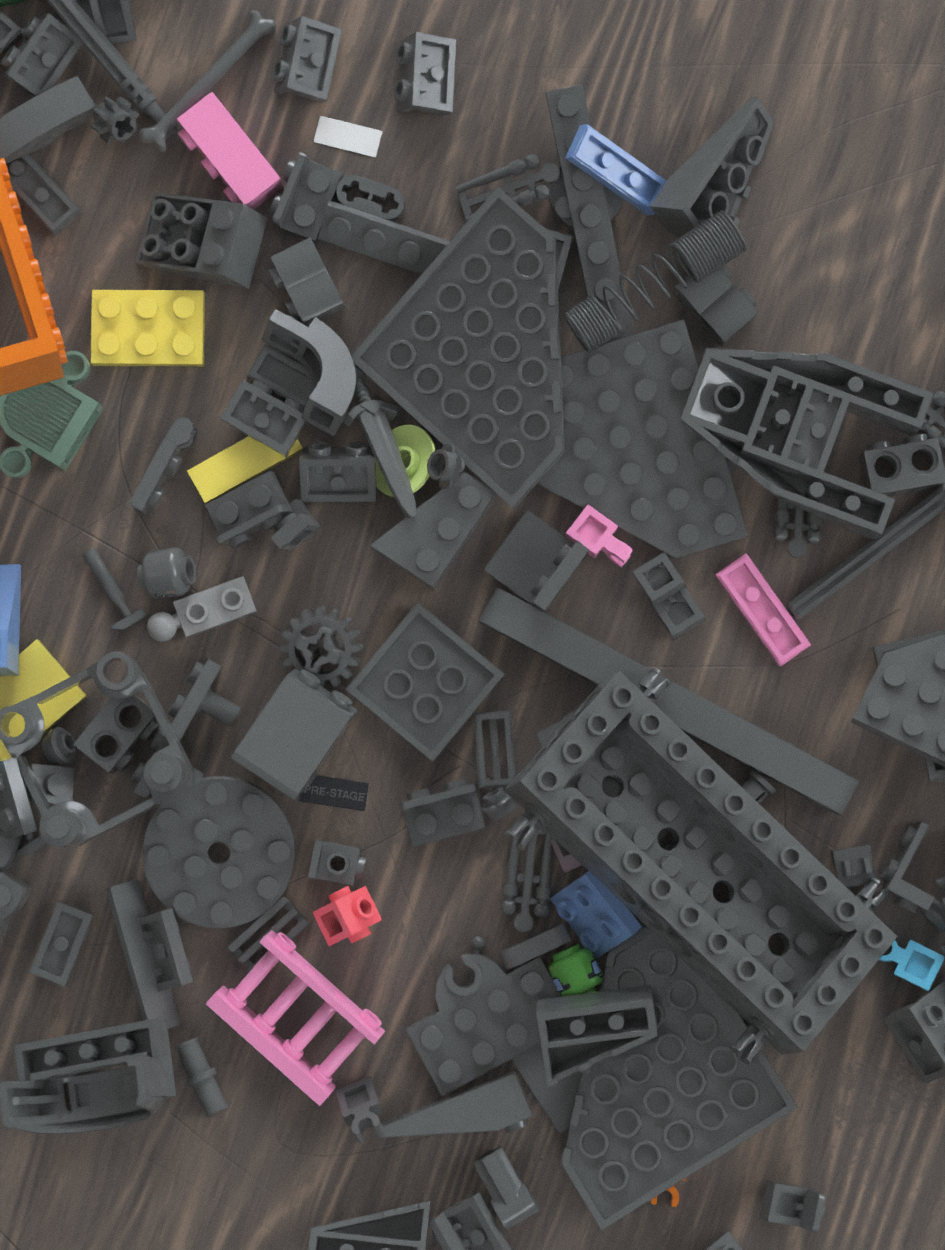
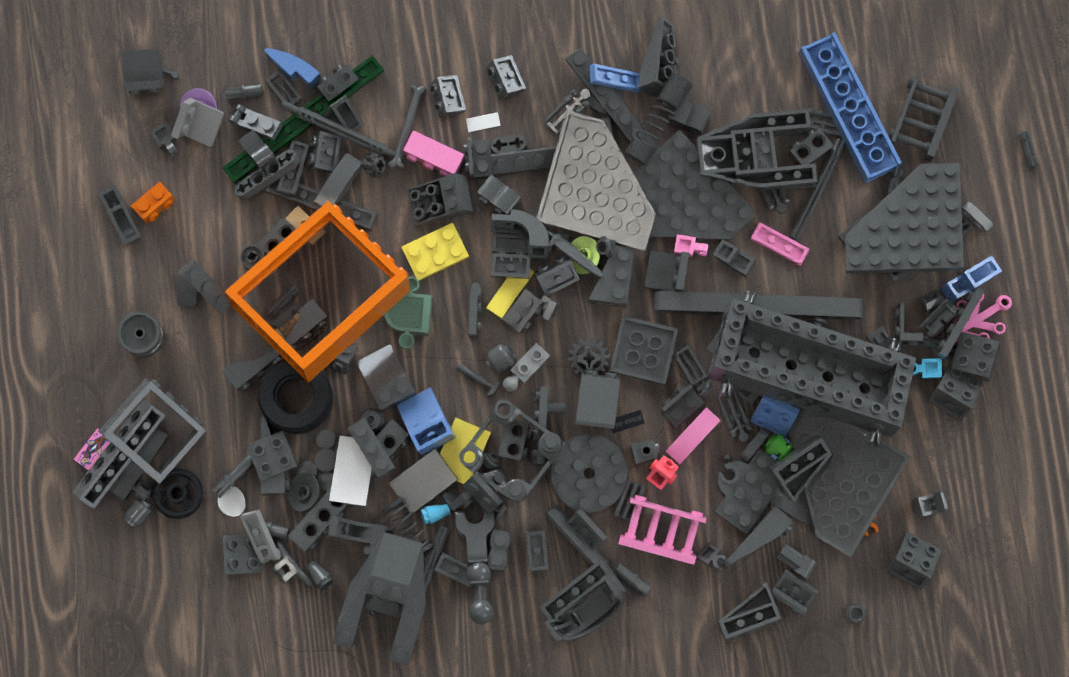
camera: 30 degrees left, 5 degrees down
(434, 877) = (693, 435): none -> bright pink slope

